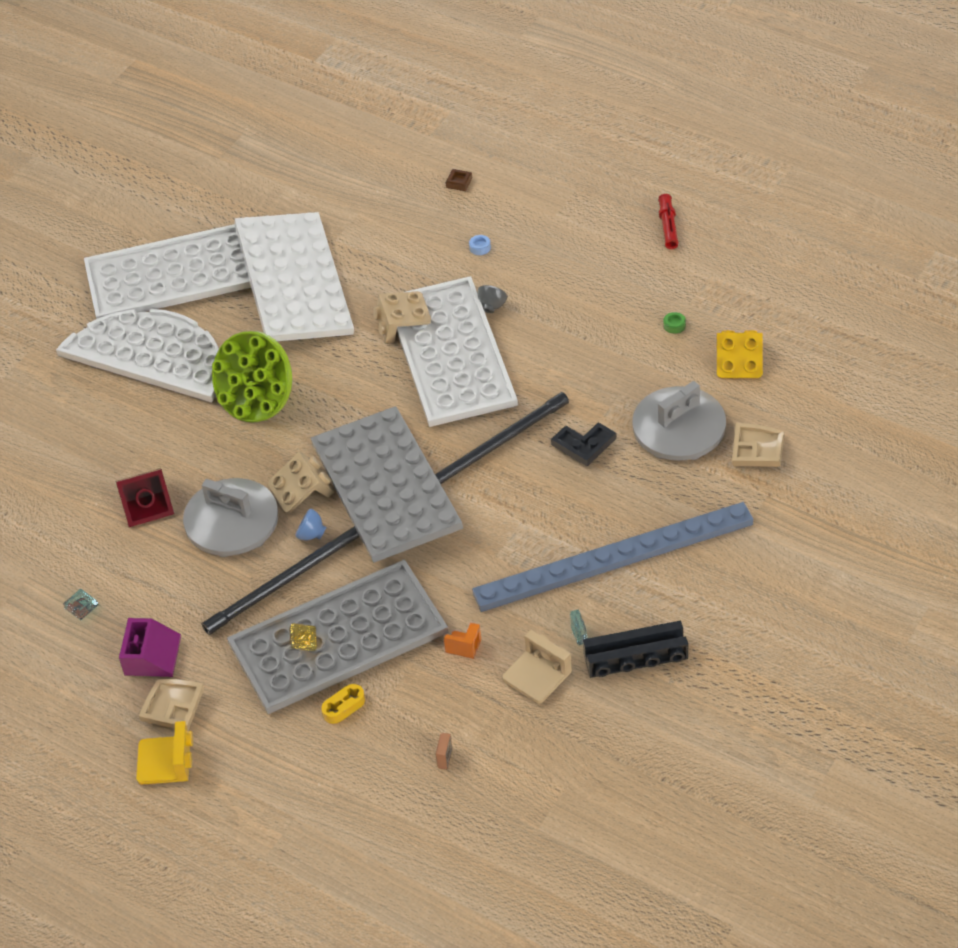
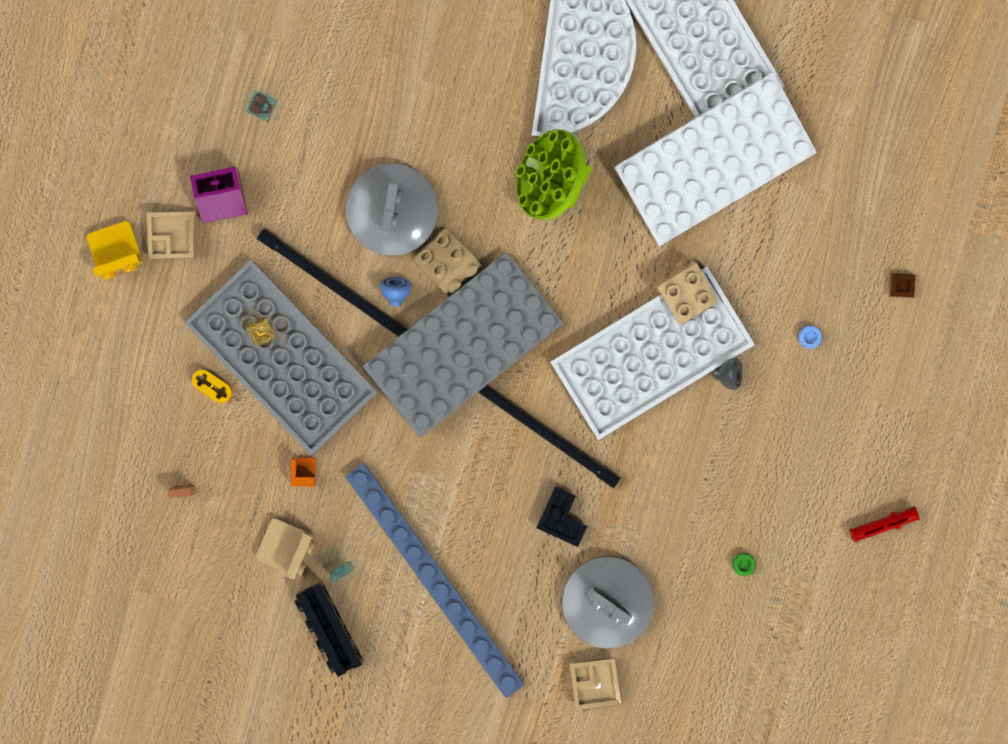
camera: 65 degrees right, 40 degrees up
(145, 497) = (394, 118): dark red slope -> none
(739, 354) = (711, 640): yellow bracket -> none

